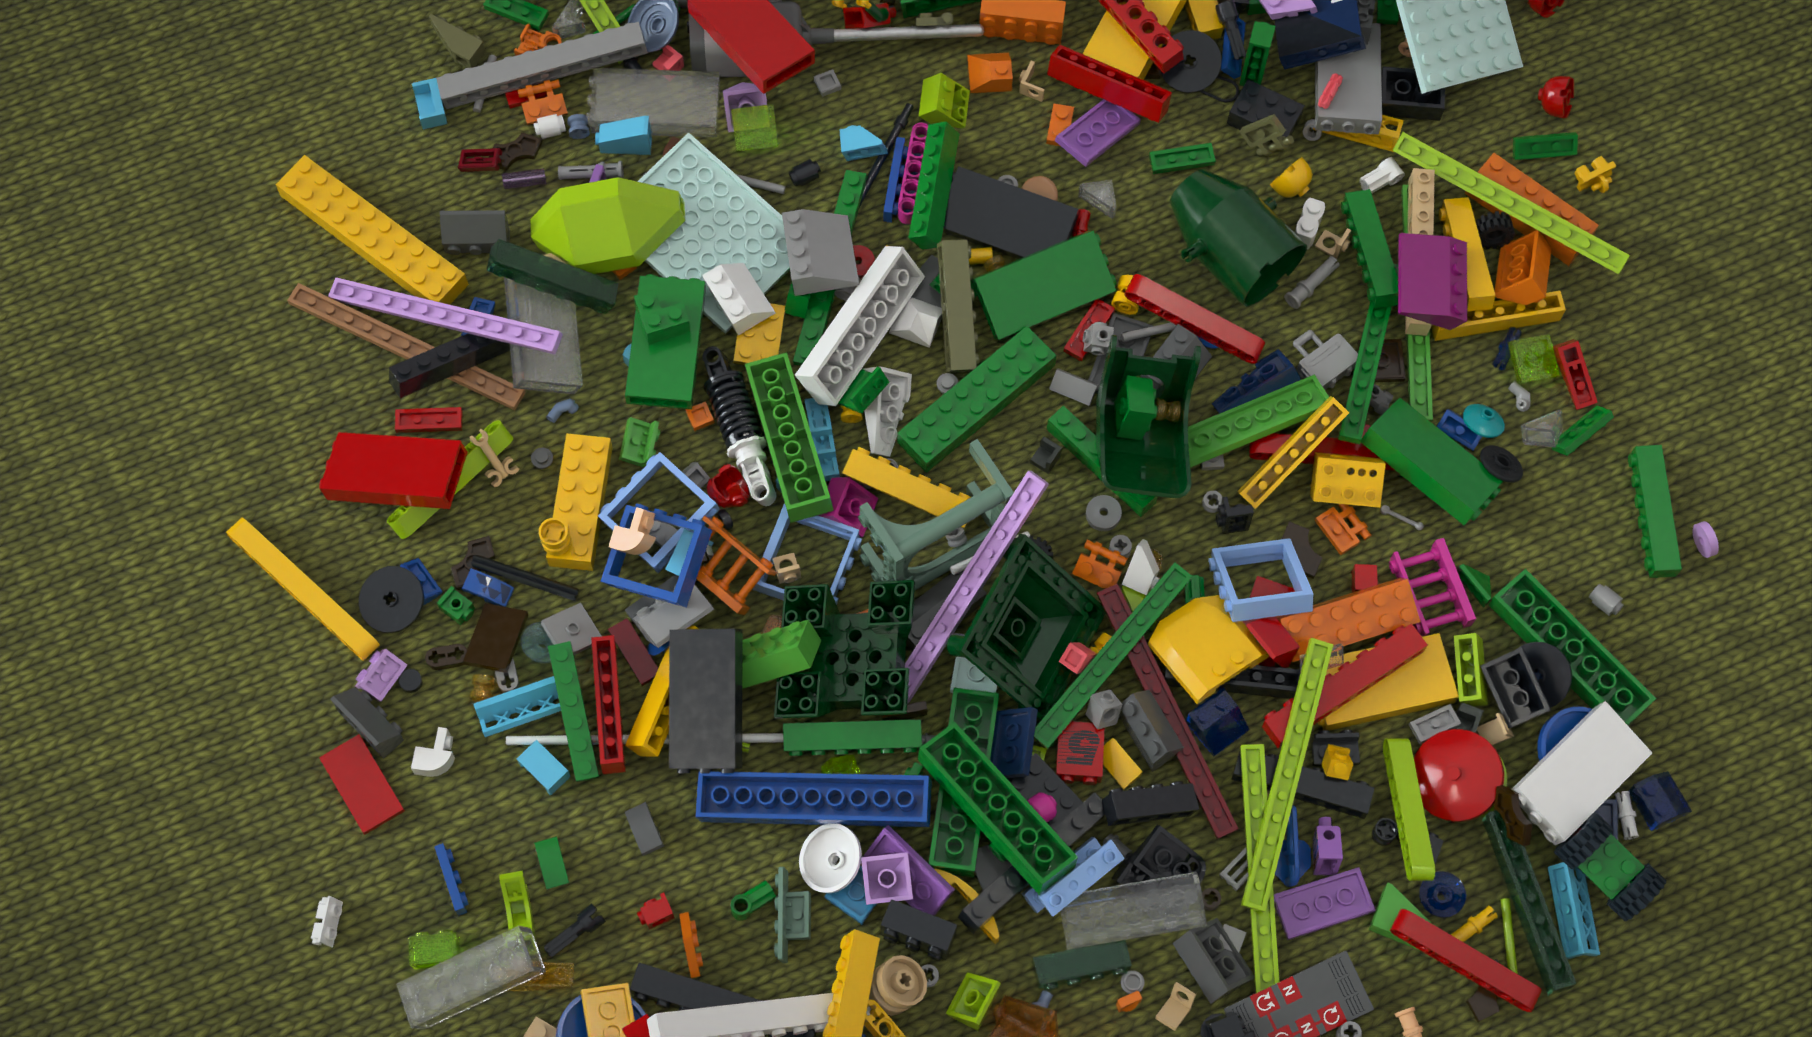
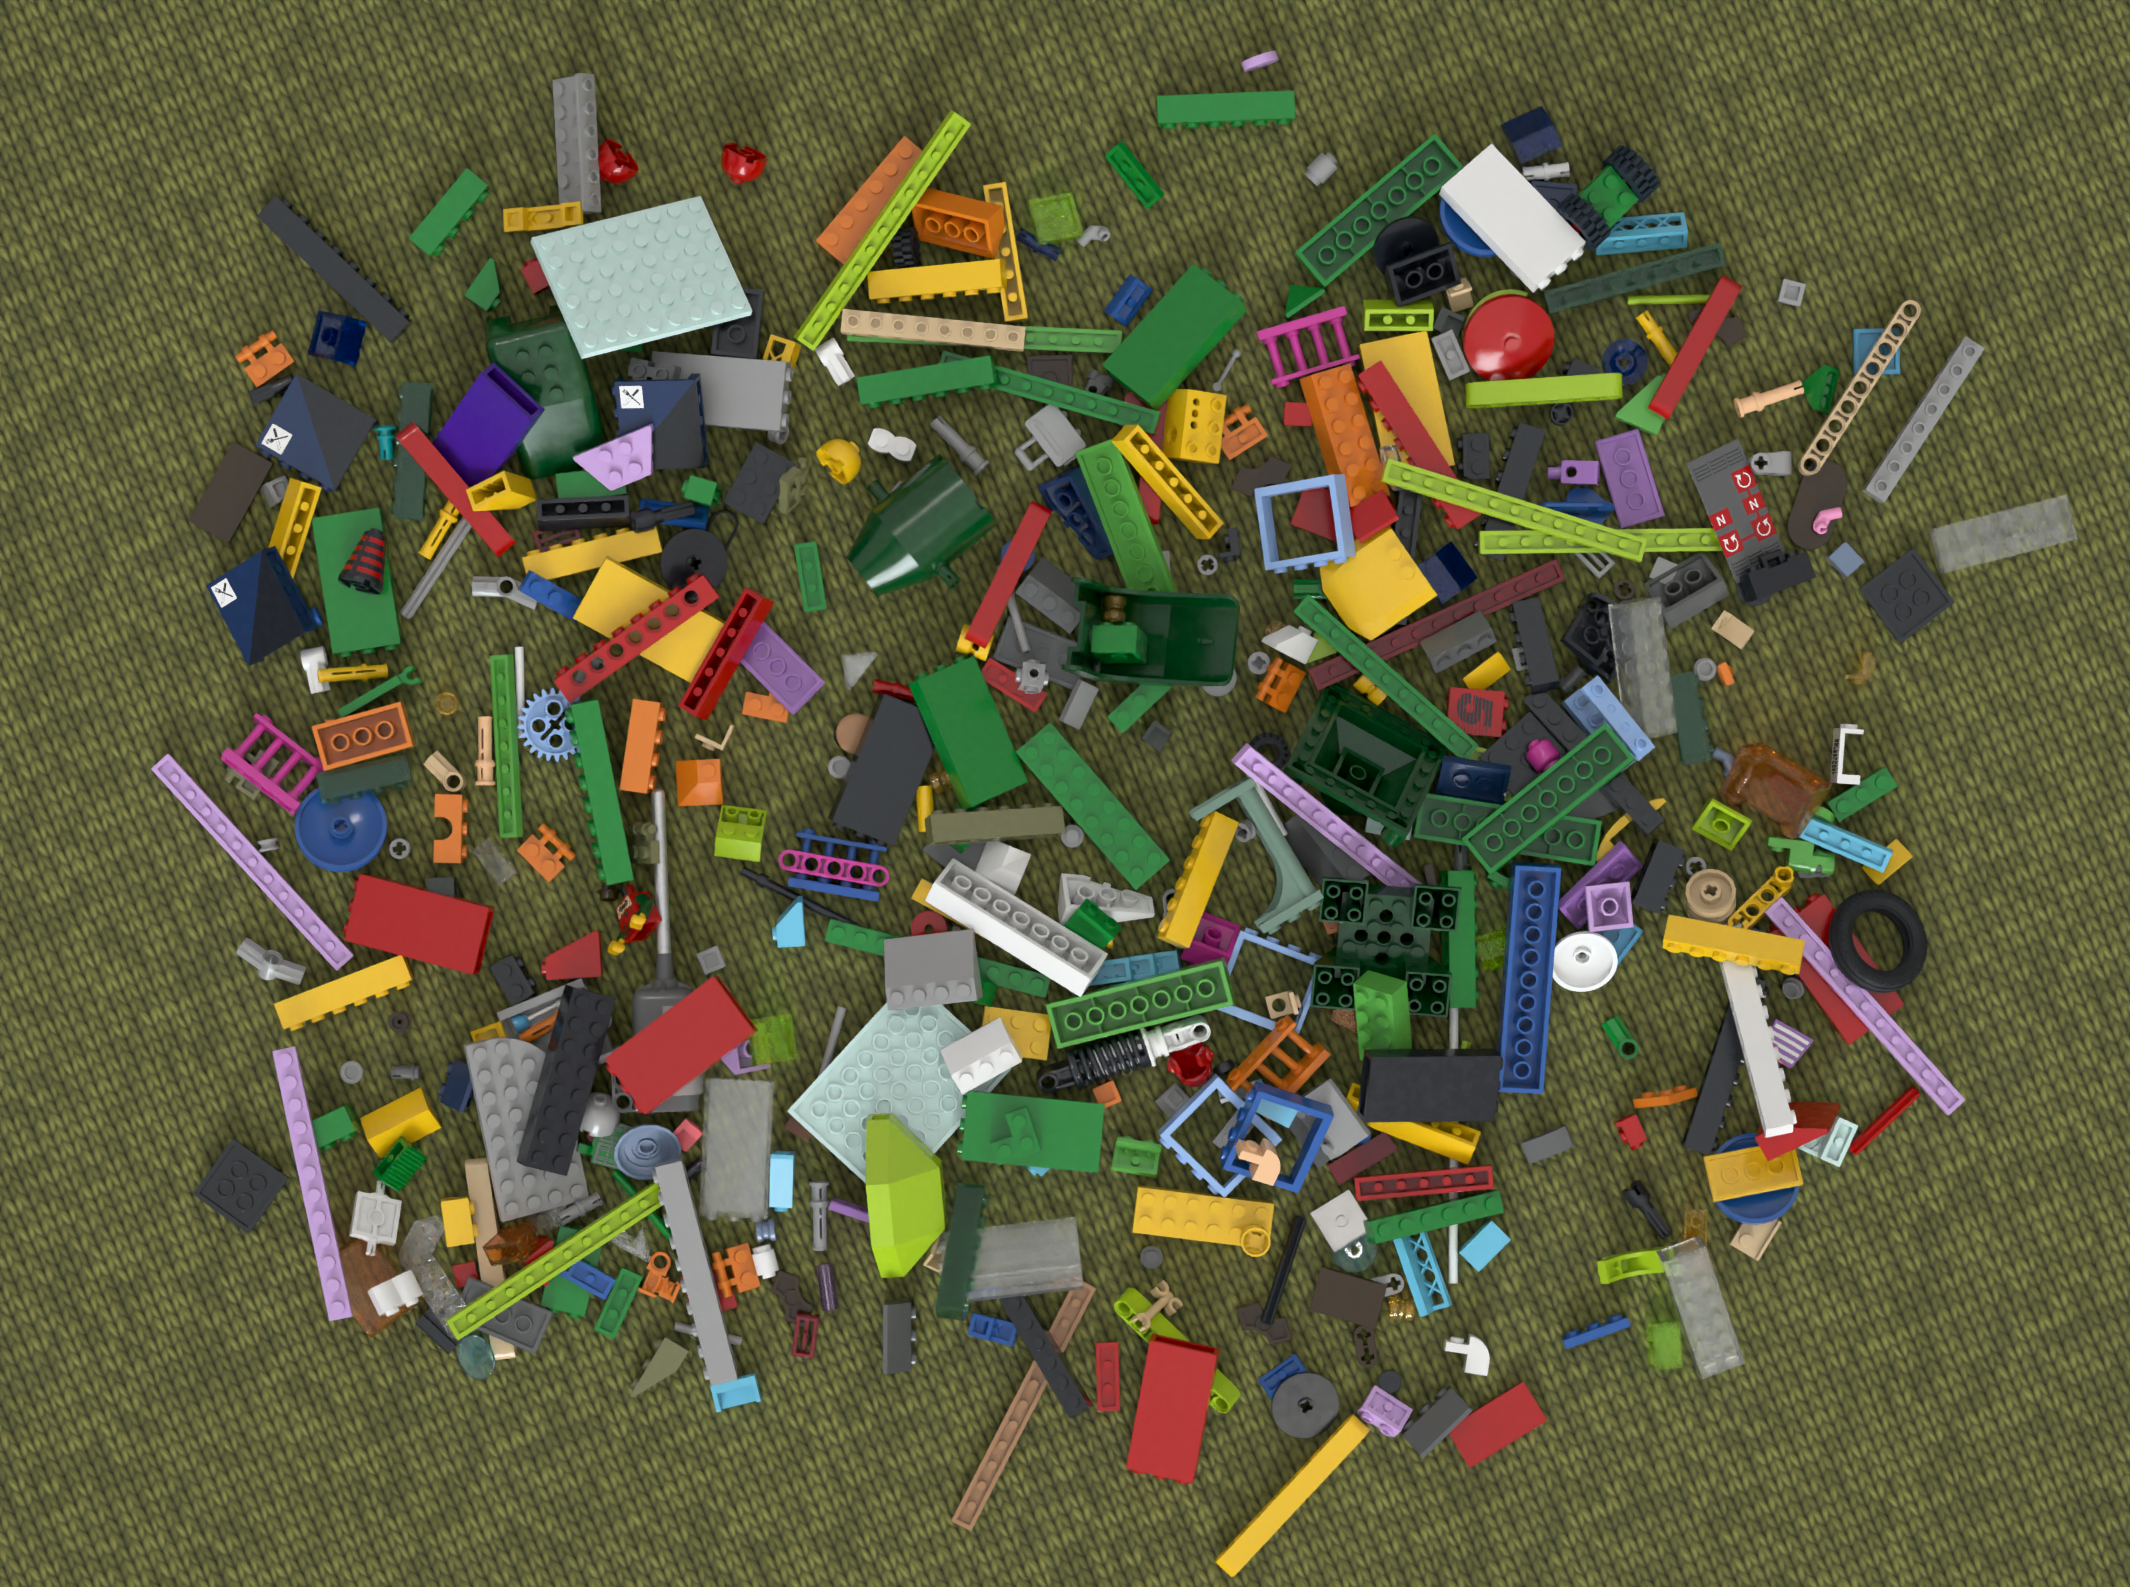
camera: 90 degrees left, 20 degrees up
(330, 911) = (1624, 1448): white hinge -> none
(371, 233) = (894, 1446): yellow brick -> none
(446, 316) = (1003, 1363): lavender plate -> none
(458, 614) = (1304, 1340): green brick -> none
(488, 587) = (1294, 1307): slope -> none
(551, 862) = (1579, 1234): green slope -> none
(560, 407) = (1093, 1237): sand blue arm -> none
(793, 915) = (1636, 997): sand green bracket -> none
(804, 173) = (824, 985): black brick -> none
(934, 185) = (854, 847): green brick -> none
(1077, 657) = (1386, 712): coral panel -> none
(1103, 709) = (1439, 688): light grey brick -> none
(1330, 91) = (748, 415): coral axle -> none
(1337, 762) = (1494, 457): yellow brick -> none
(1341, 244) = (917, 412): tan bracket -> none
(1432, 279) = (980, 324): magenta slope -> none
(1483, 420) = (1128, 282): teal dish -> none
(1501, 463) = (1172, 250): black wheel -> none
(1517, 825) = (1548, 294): dark brown tile -> none
(1543, 430) = (1135, 214): clear slope -> none
(1545, 146) = (800, 181): green plate -> none
(1575, 373) = (1069, 176): red slope -> none
(1596, 179) = (839, 141): yellow hips -> none

